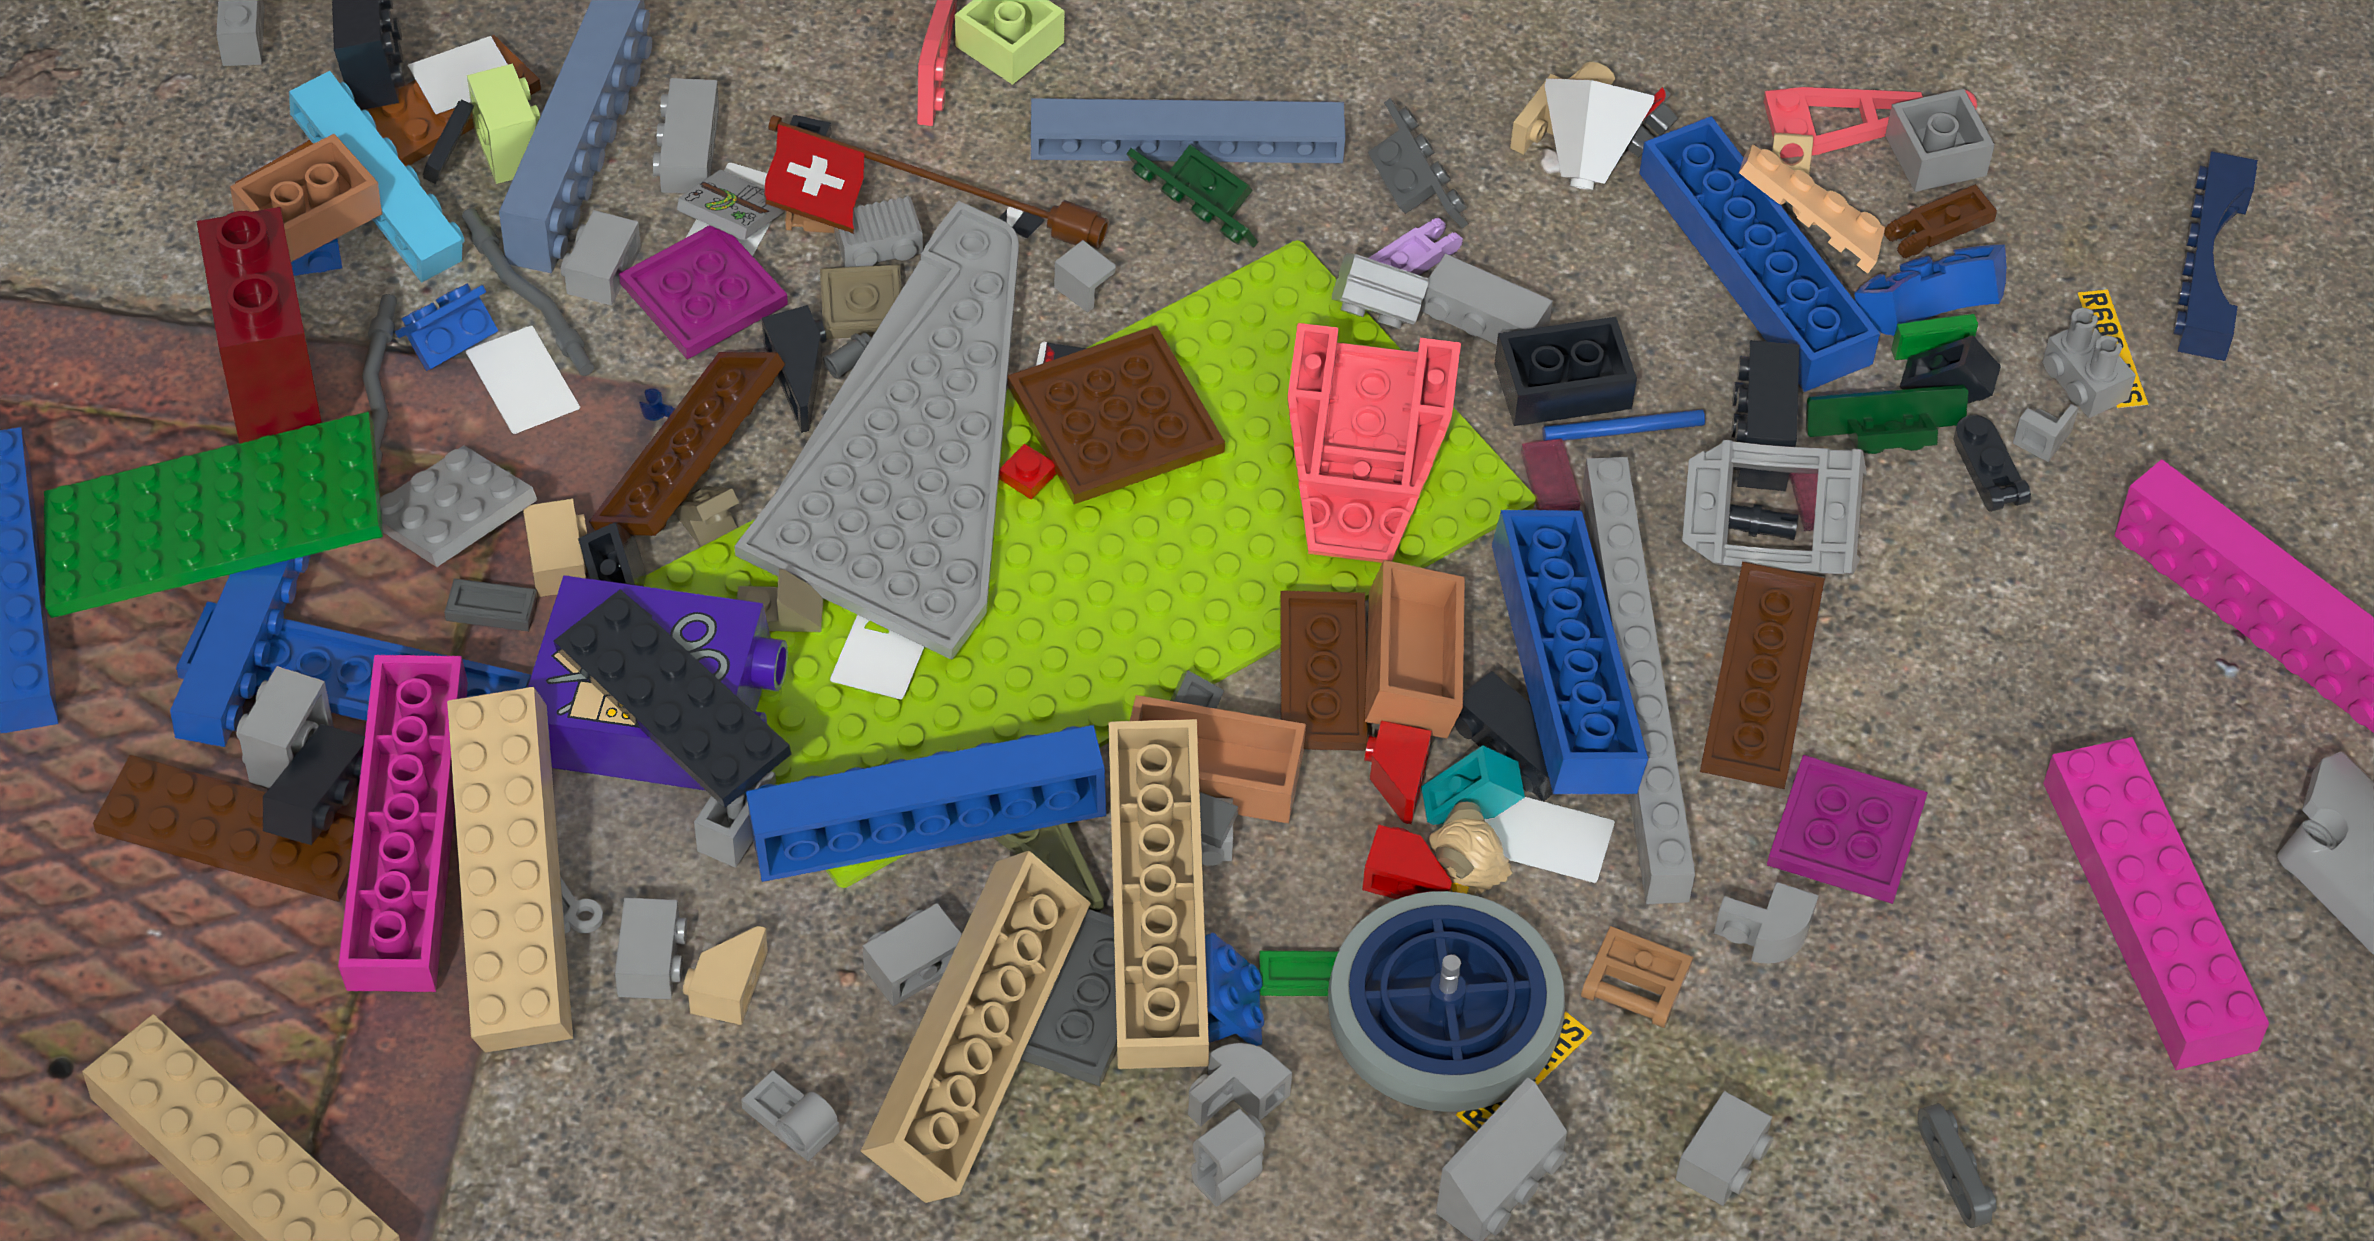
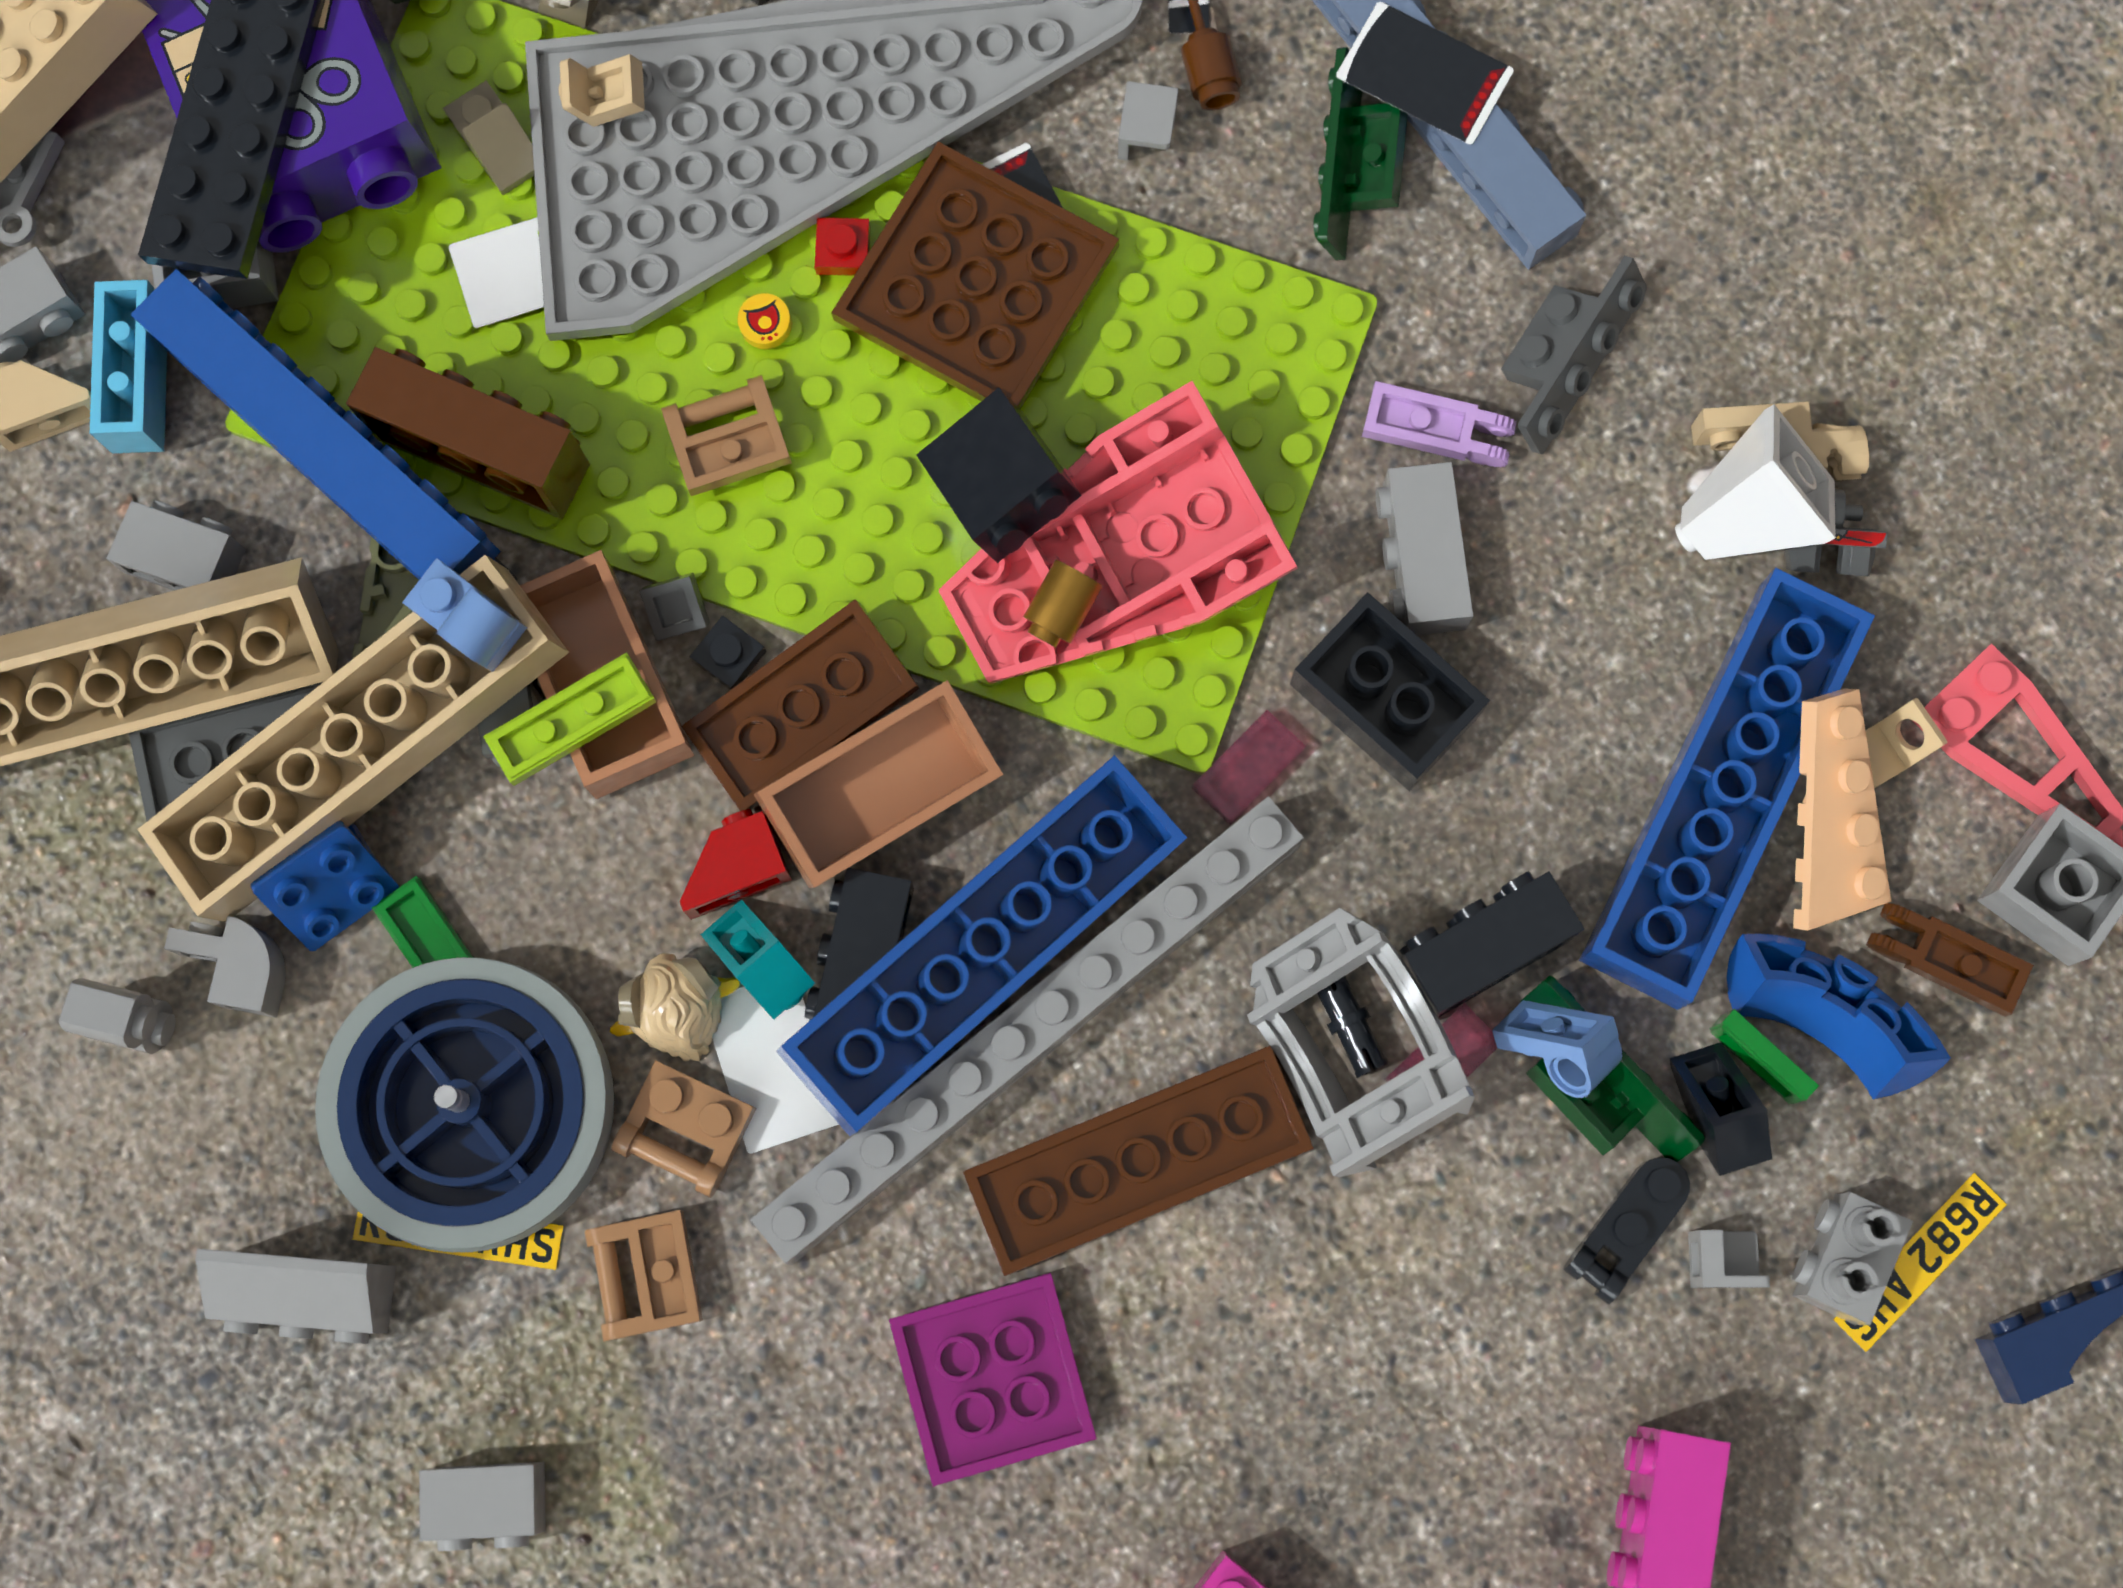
camera: 60 degrees right, 25 degrees up
(759, 897) = (126, 372): none -> medium azure brick
(820, 512) = (603, 90): none -> tan bracket
(1009, 701) = (469, 431): none -> reddish brown brick
(1041, 540) = (764, 321): none -> yellow tile
(1117, 604) = (730, 450): none -> medium nougat plate
(1150, 749) = (464, 615): none -> medium blue plate
(1183, 120) = (1425, 73): none -> black sticker
(1240, 771) = (569, 719): none -> lime tile
(1249, 695) = (727, 653): none -> black plate
(1268, 461) = (998, 475): none -> black brick
(1379, 290) = (1345, 428): brick -> none
(1382, 474) = (1061, 604): none -> pearl gold brick
(1402, 865) = (610, 950): red slope -> none
(1550, 889) = (691, 1111): none -> medium nougat plate
(1624, 425) = (1379, 798): blue bar -> none
(1773, 931) = (802, 1389): light grey brick -> none
(1851, 410) = (1574, 1044): none -> medium blue plate

